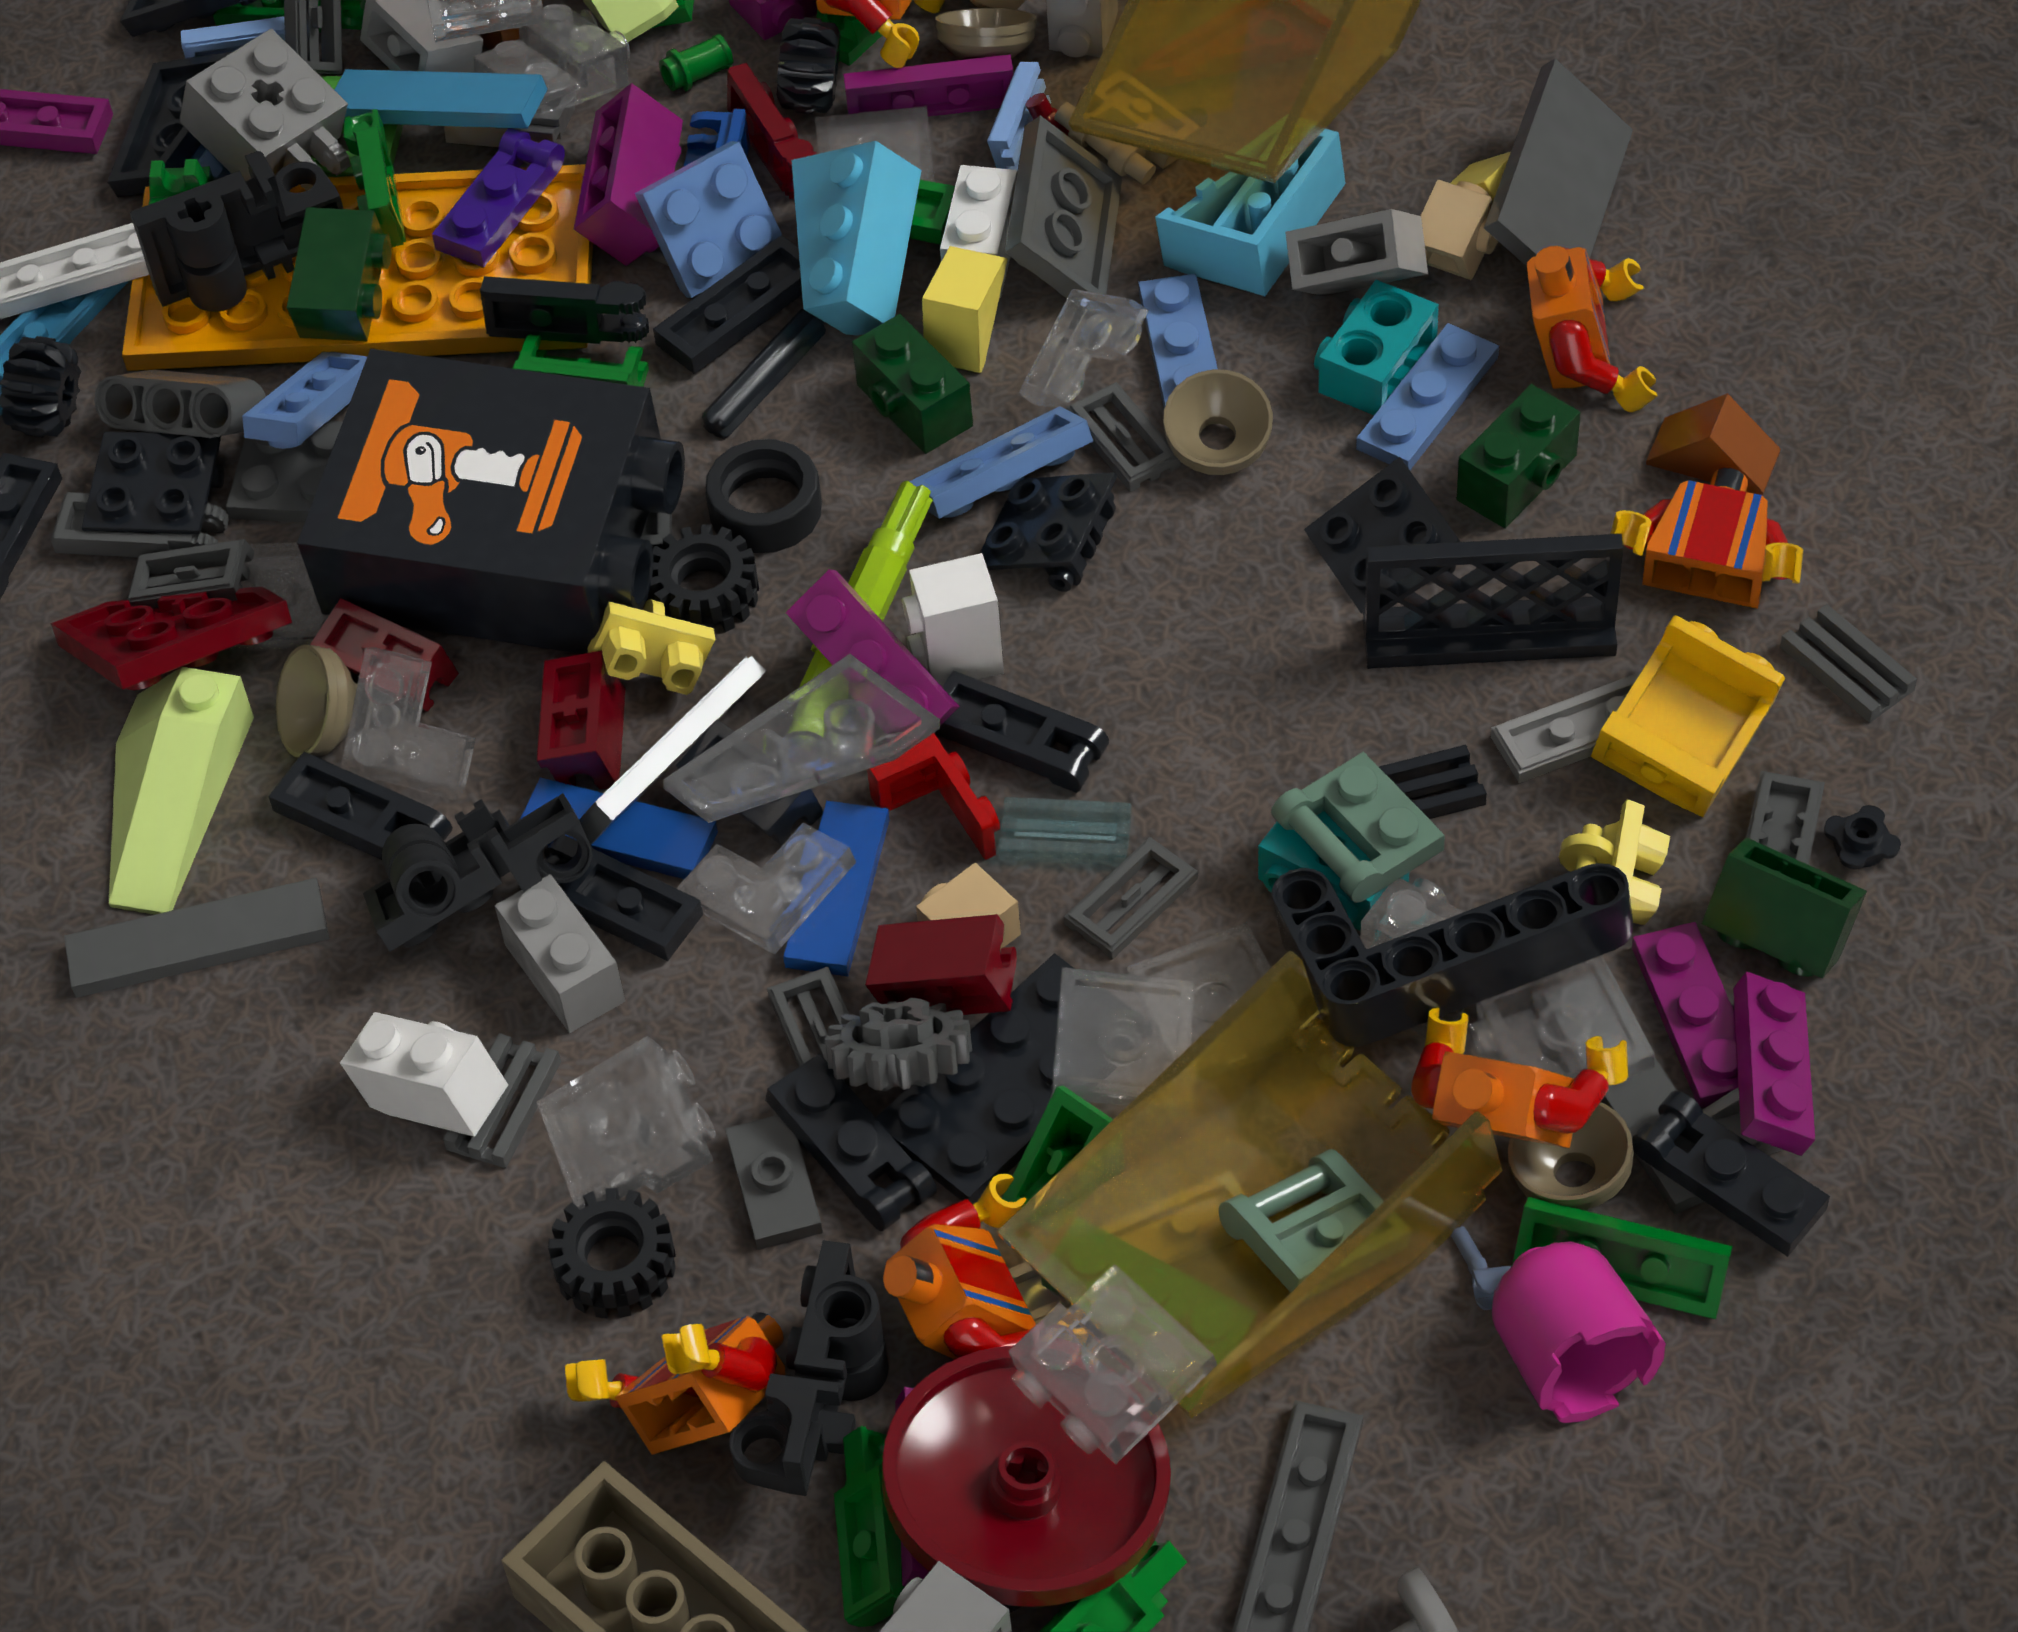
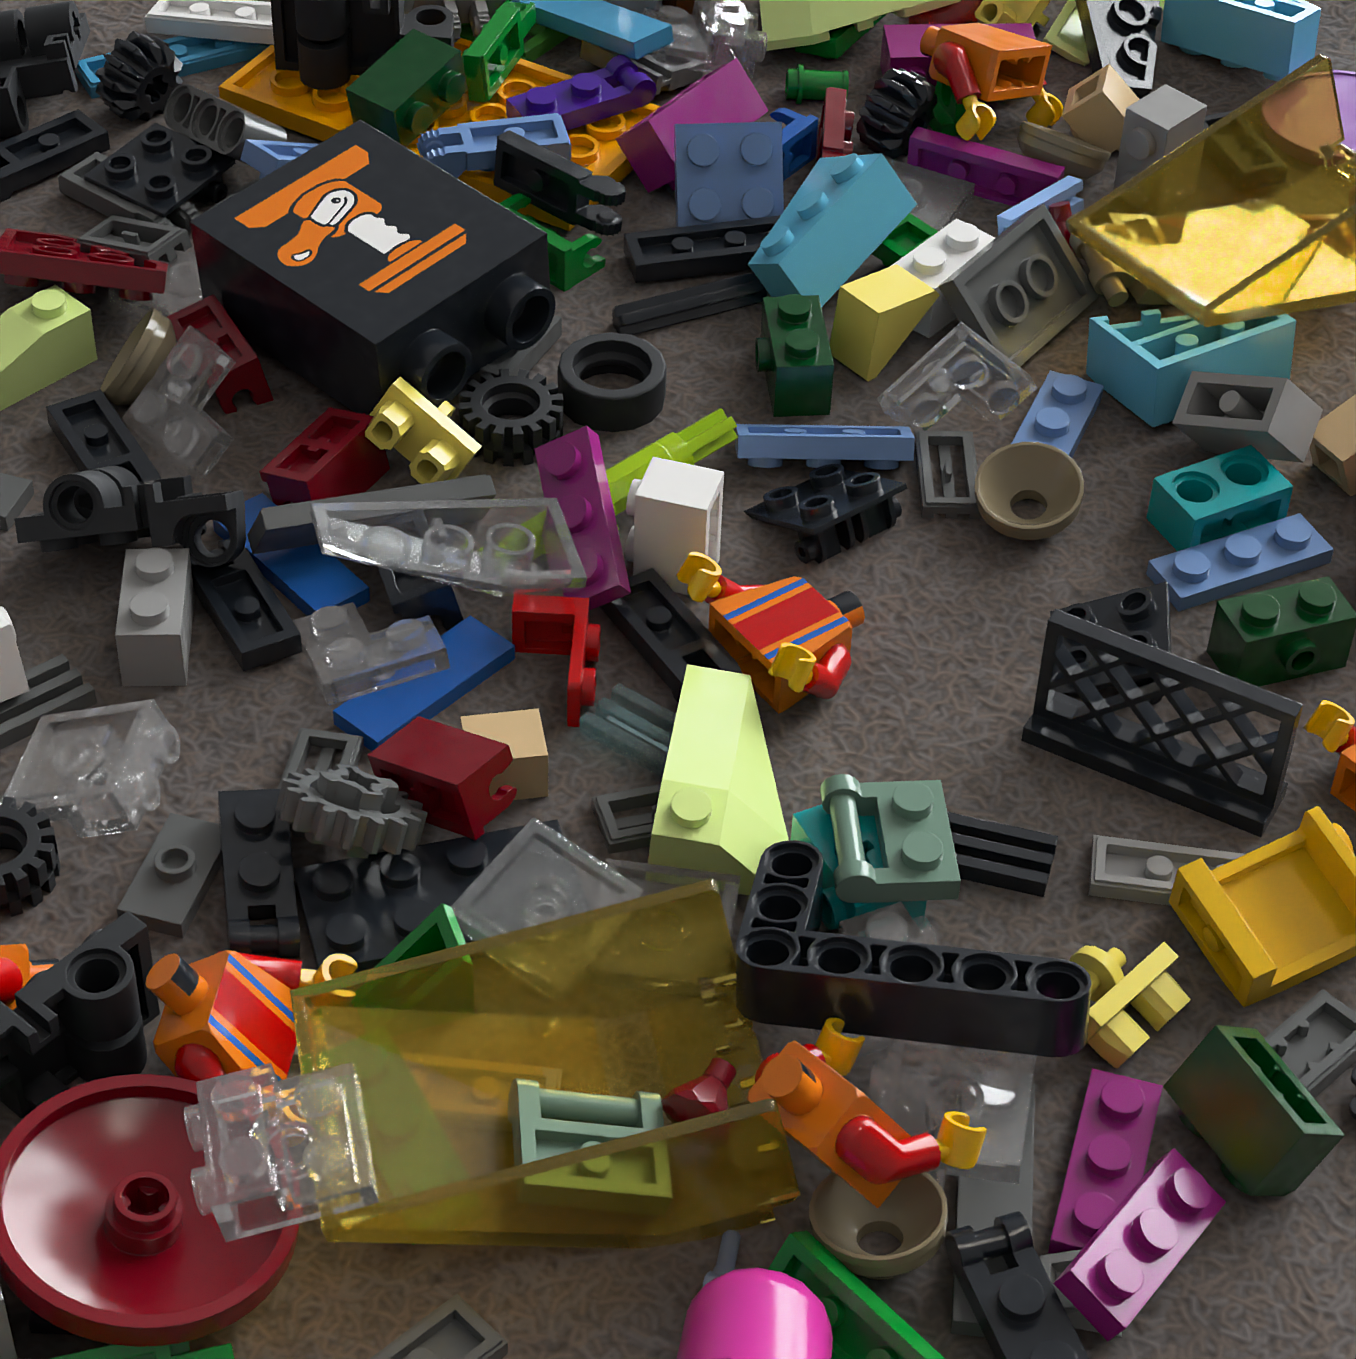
camera: 25 degrees right, 10 degrees down
(455, 293) = (474, 143): none -> medium blue hinge
(1110, 676) = (778, 631): none -> torso
(1163, 850) = (718, 782): none -> yellowish green wedge
(1375, 1139) = (701, 1095): none -> dark red rock

